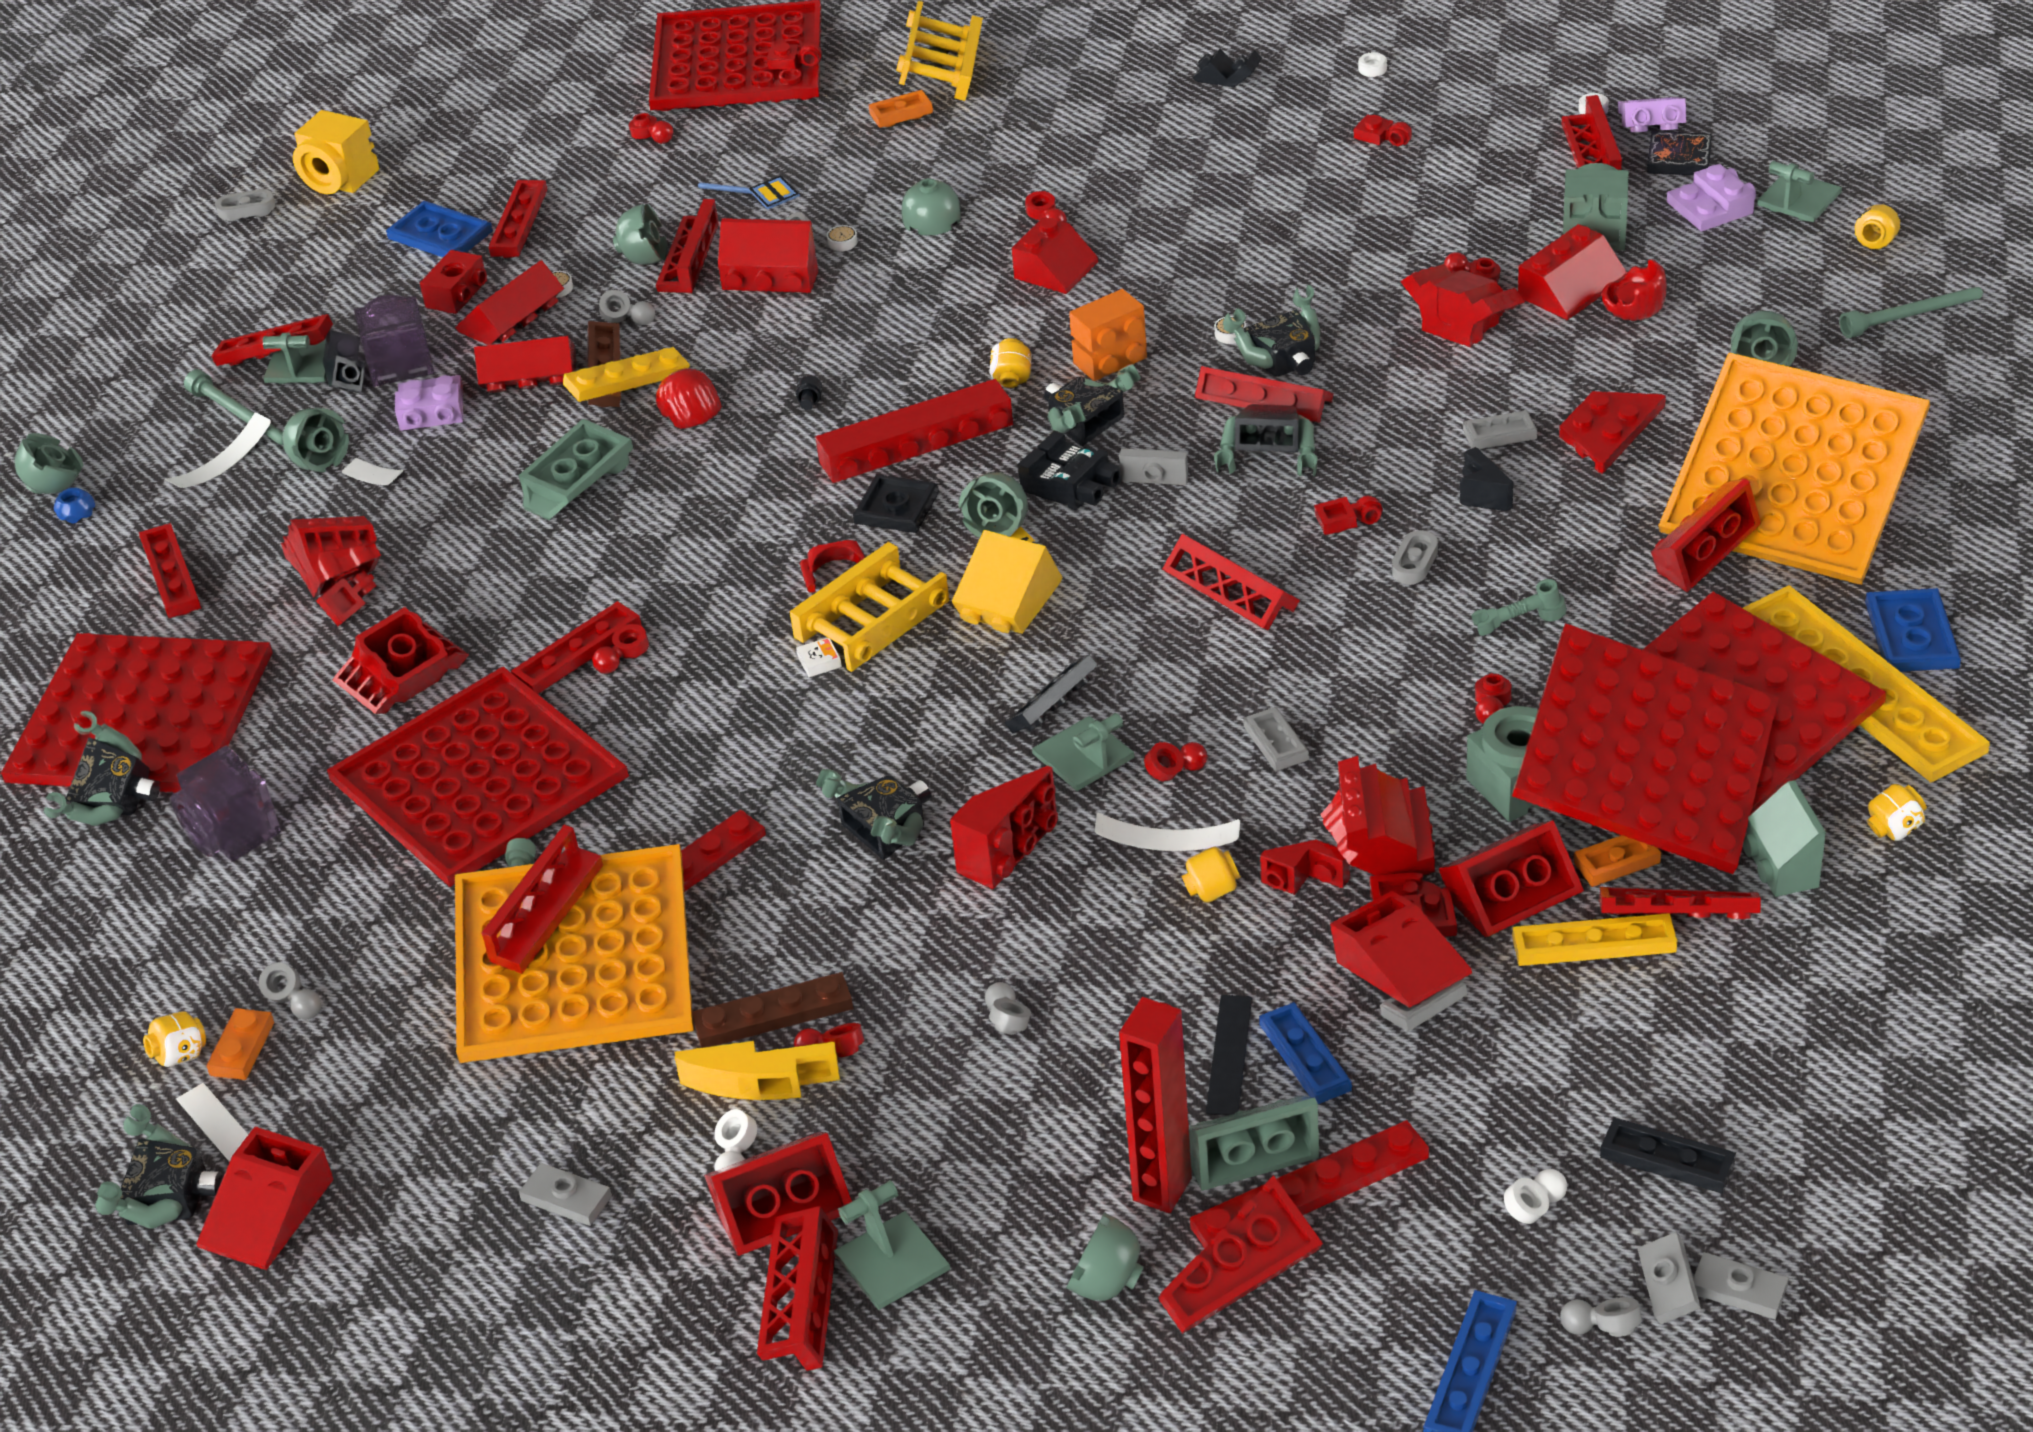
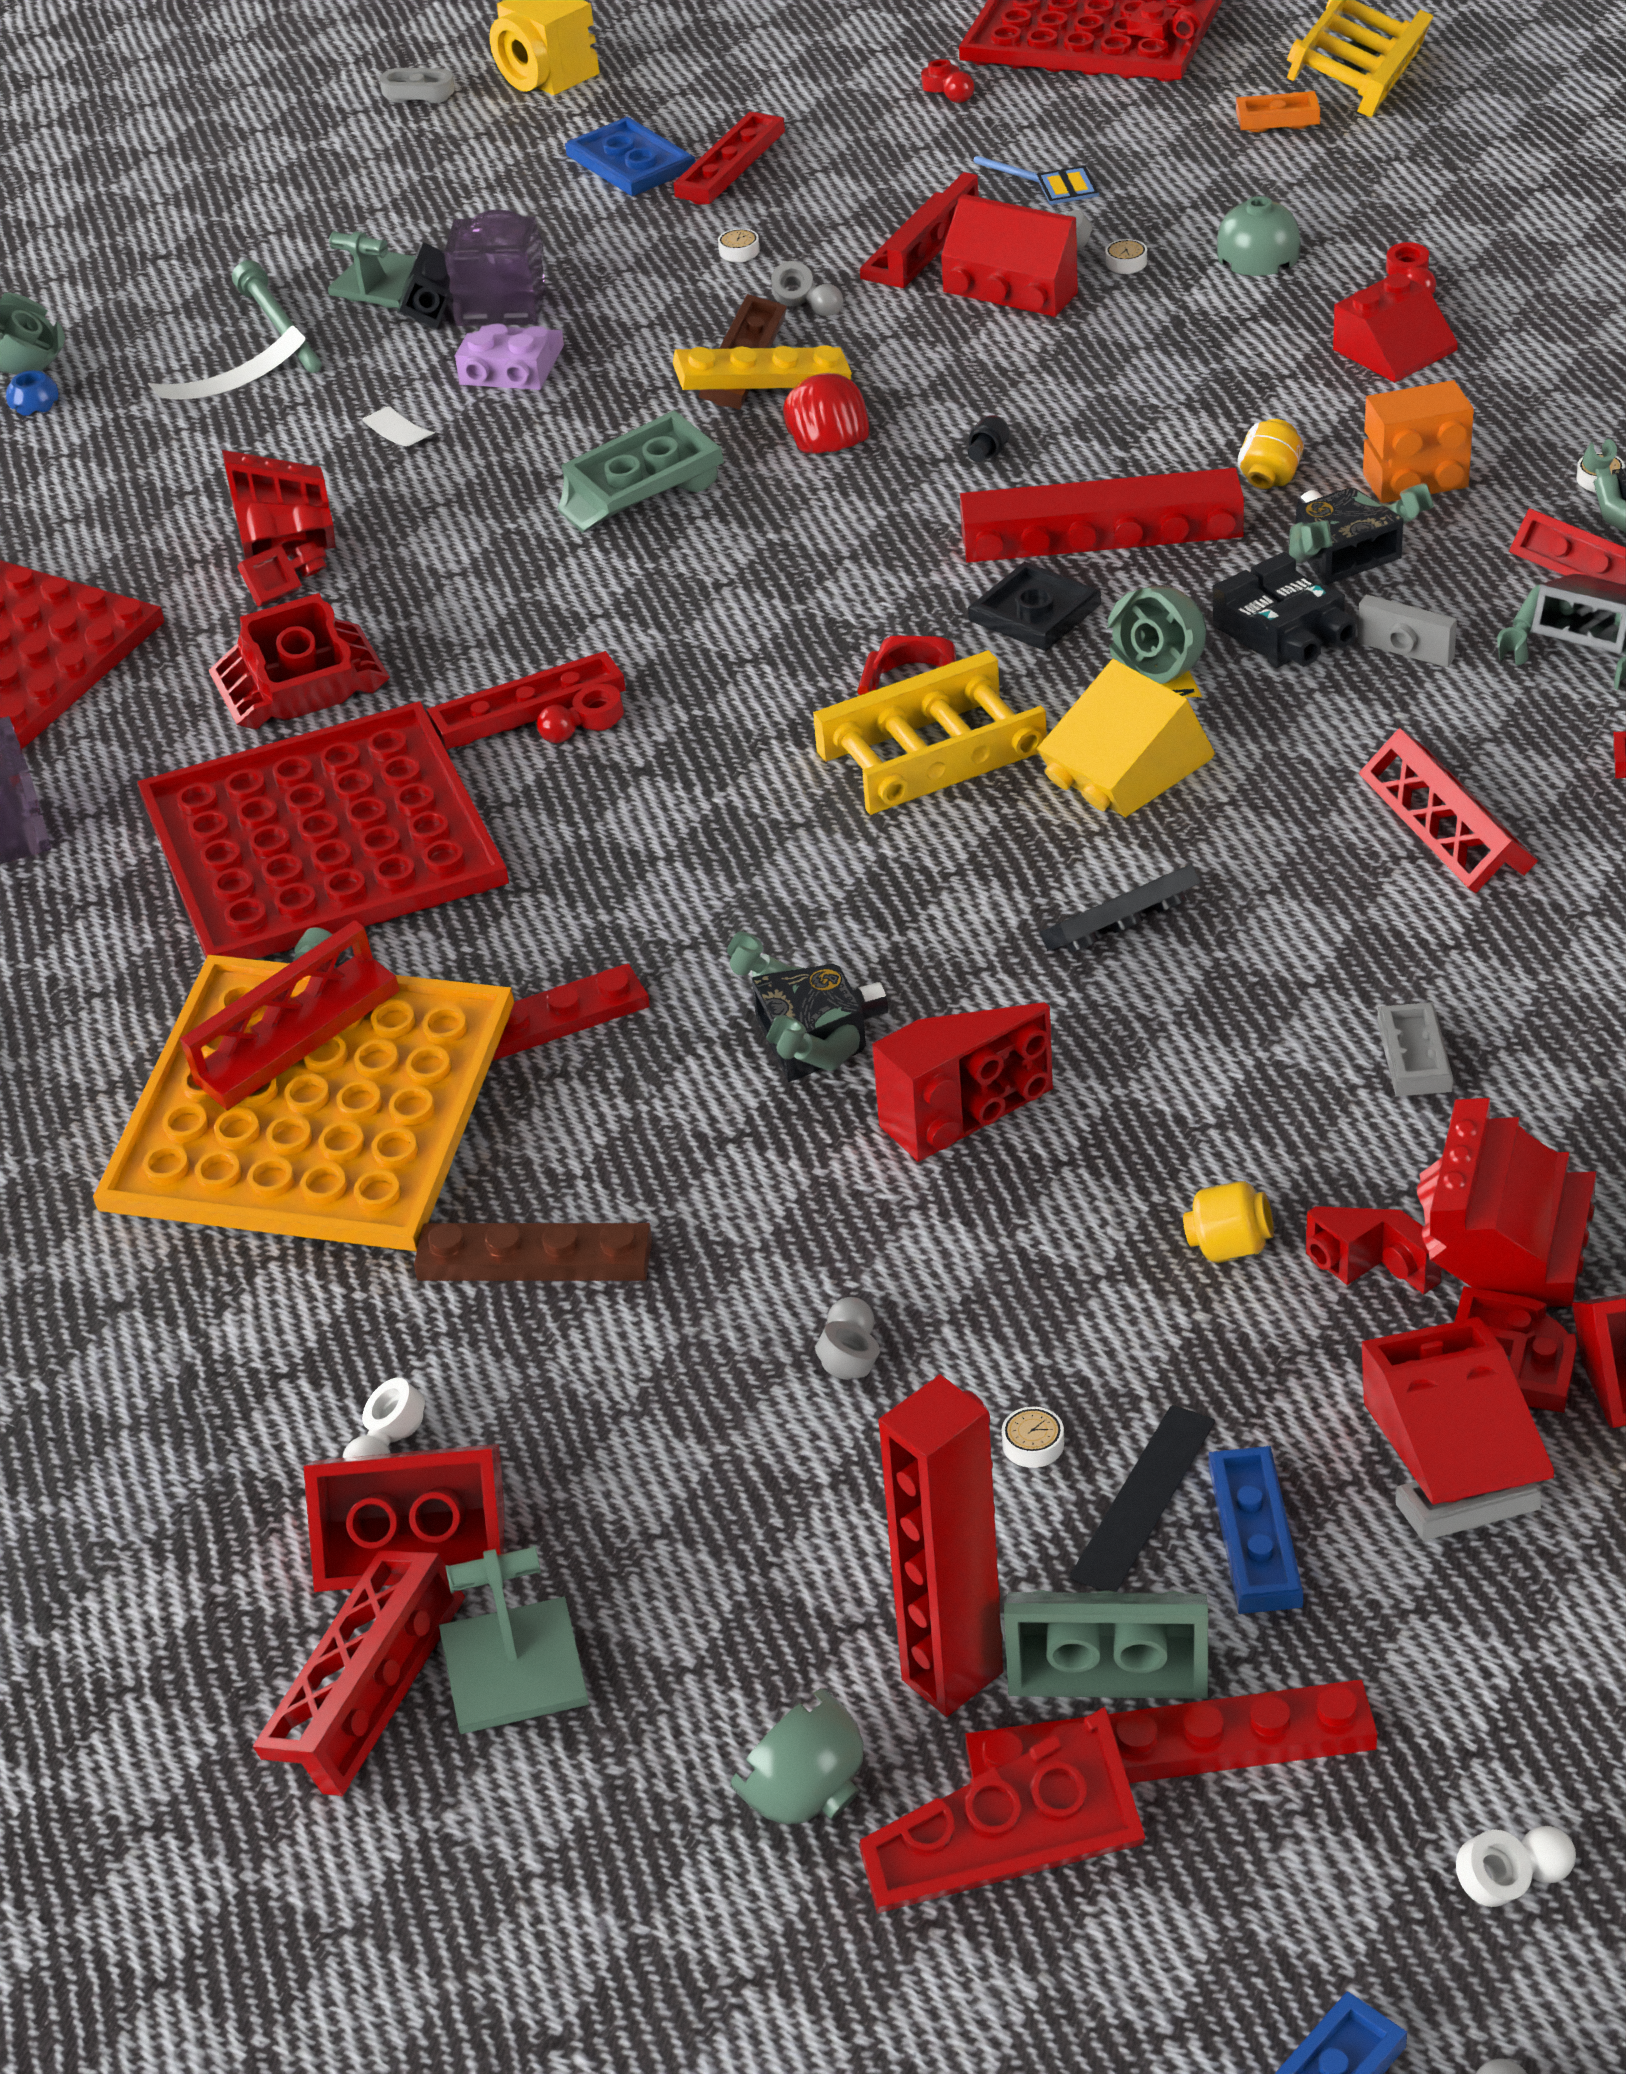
camera: 20 degrees right, 0 degrees up
(169, 570) = (93, 494): red plate -> none
(251, 345) = (315, 248): red plate -> none
(315, 439) = (342, 370): sand green cylinder -> none
(453, 281) = (610, 217): red brick -> none
(512, 305) = (665, 257): red slope -> none
(524, 363) = (642, 328): red slope -> none
(565, 1194) = (134, 1433): light grey plate -> none
(639, 236) = (864, 203): sand green cylinder -> none
(767, 1075) = (473, 1341): yellow slope -> none
(818, 657) = (833, 784): white tile -> none
(846, 1038) = (598, 1320): red plate -> none
(1085, 751) = (1130, 1000): sand green plate -> none
(1166, 838) = (1190, 1152): white sticker -> none
(1191, 757) = (1281, 1044): red plate -> none

